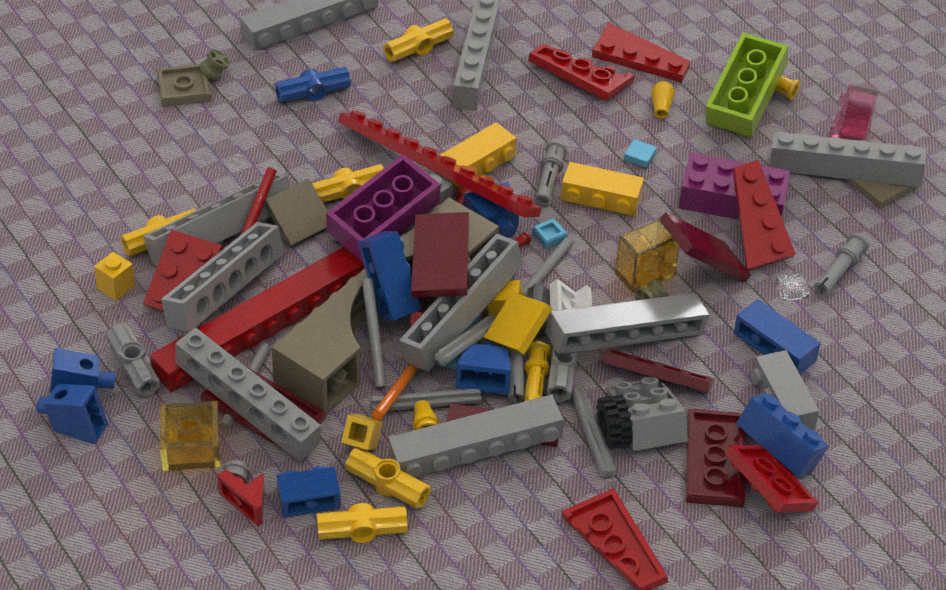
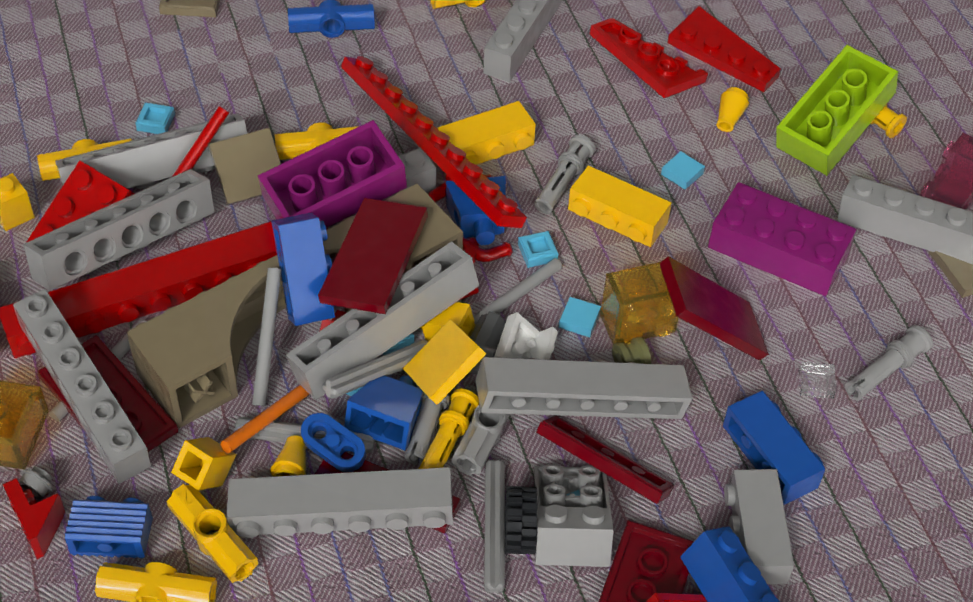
camera: 15 degrees right, 5 degrees up
(199, 191) = (155, 118): none -> medium azure tile
(456, 396) = (334, 444): none -> blue plate
(601, 276) = (579, 317): none -> medium azure tile
(761, 224) = (798, 292): red wing -> none

